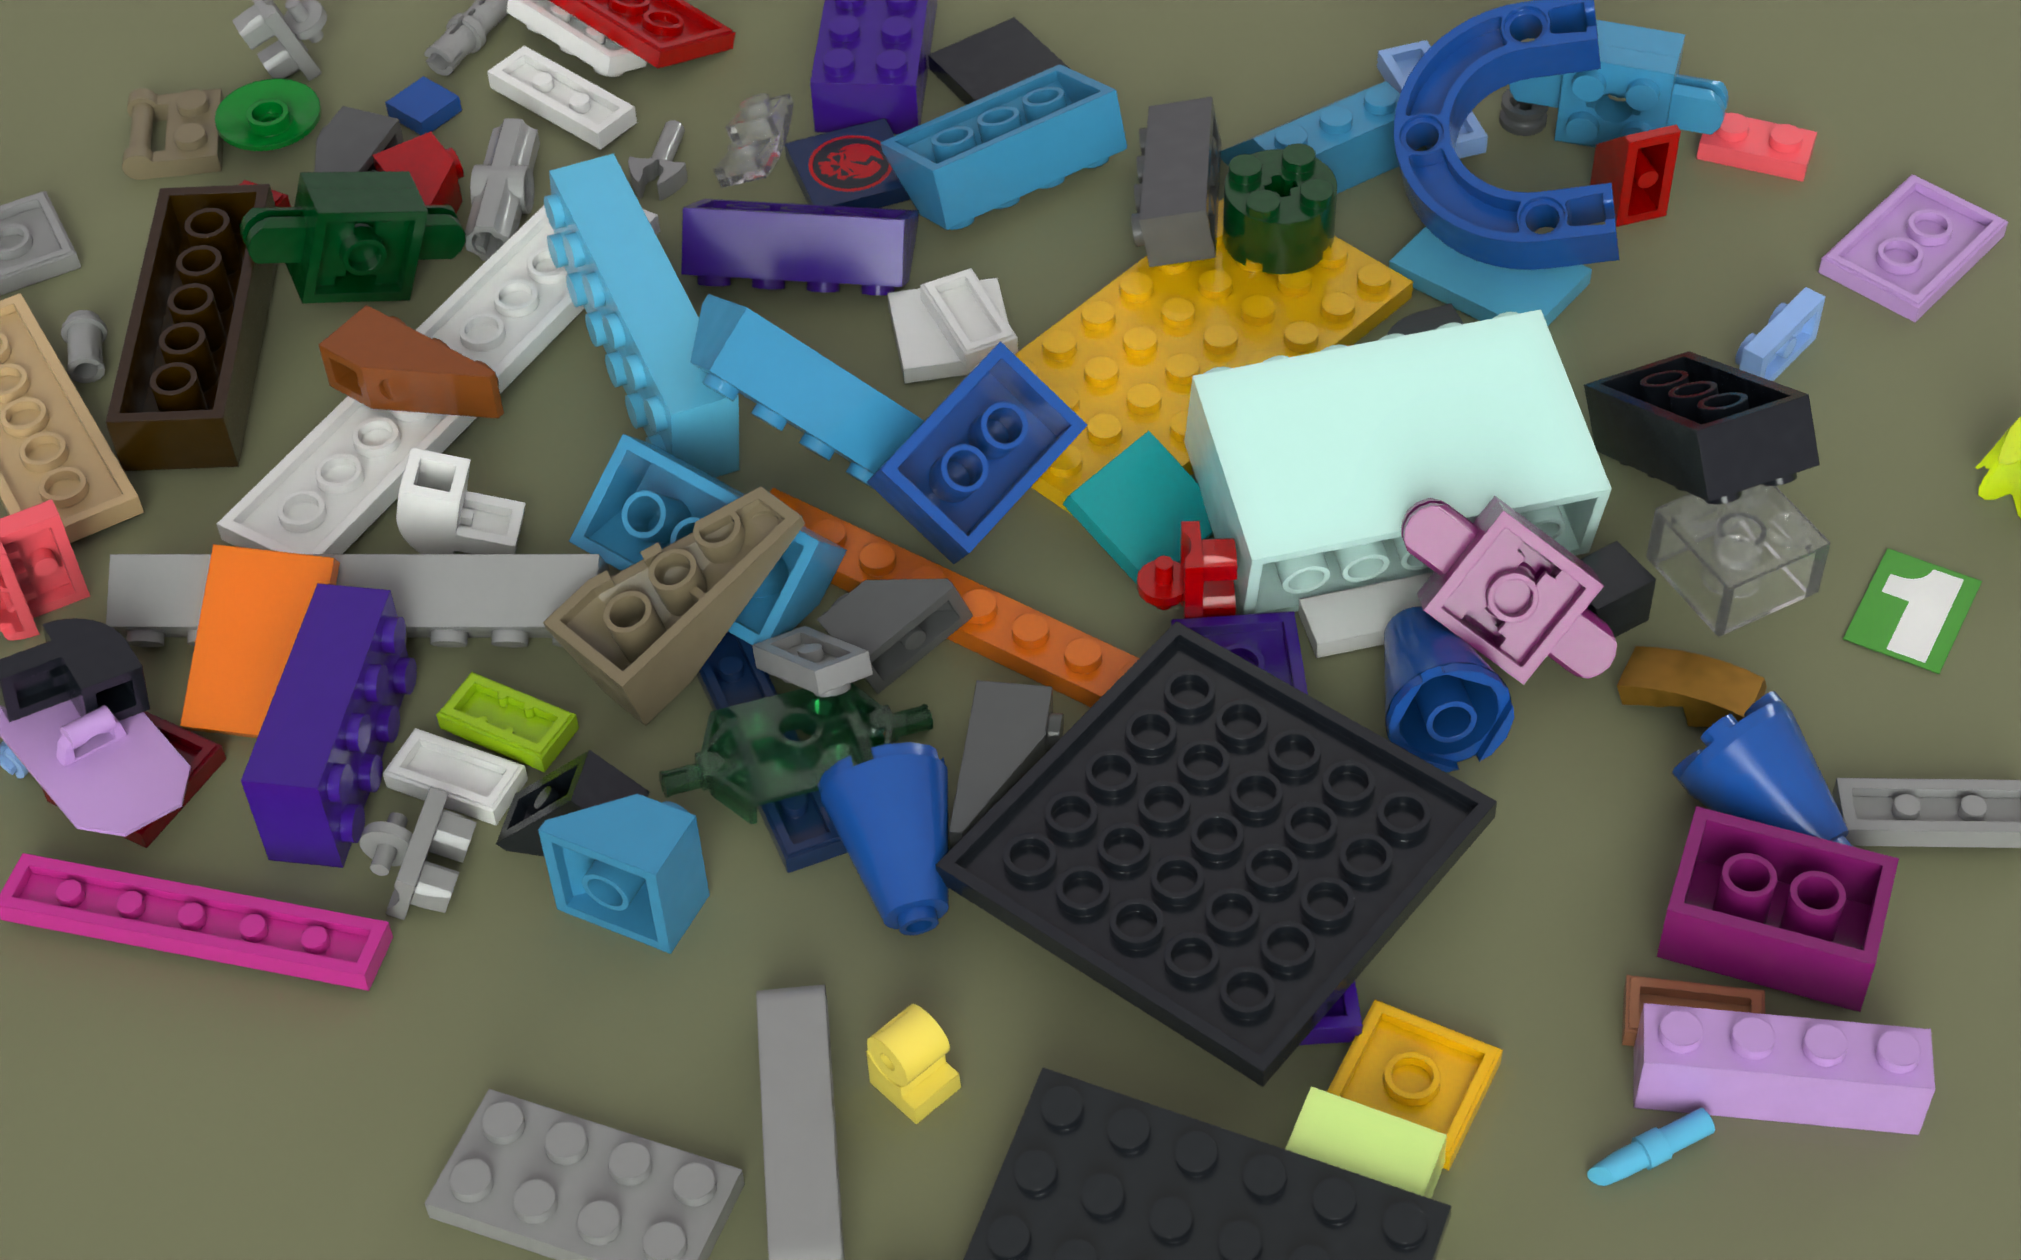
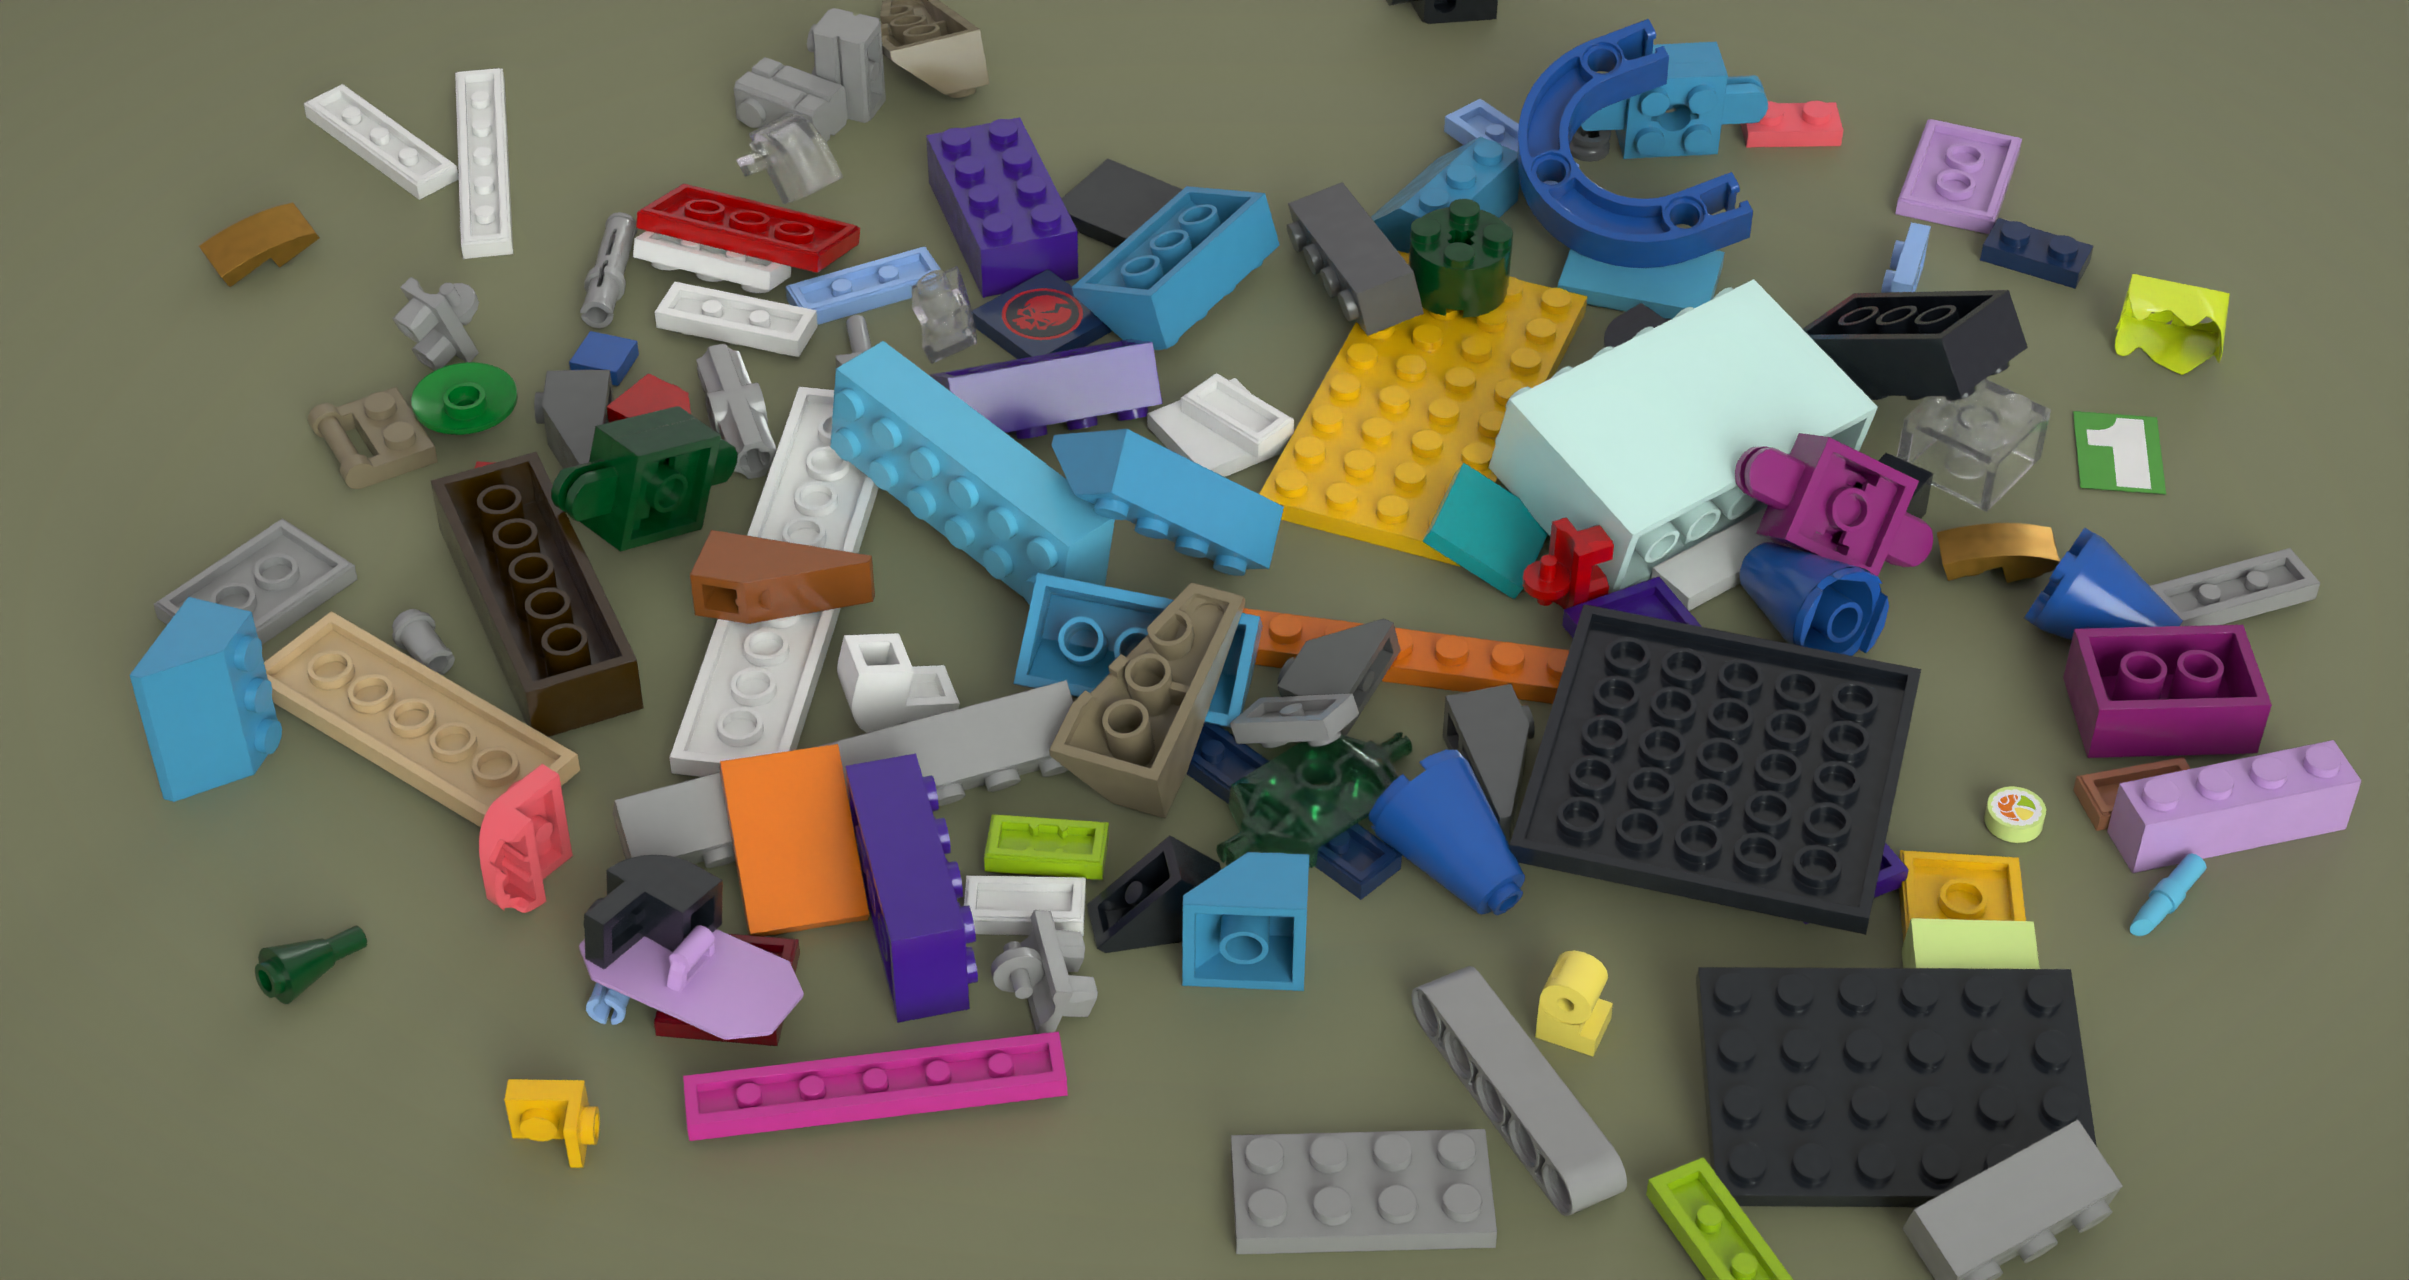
camera: 25 degrees left, 5 degrees down
(700, 92) = (862, 285): none -> light blue tile
(977, 453) = (1337, 516): blue brick -> none
(1533, 997) = (2015, 814): none -> tile
(1639, 171) = (1720, 153): red slope -> none
(1950, 356) = (2036, 252): none -> dark blue plate

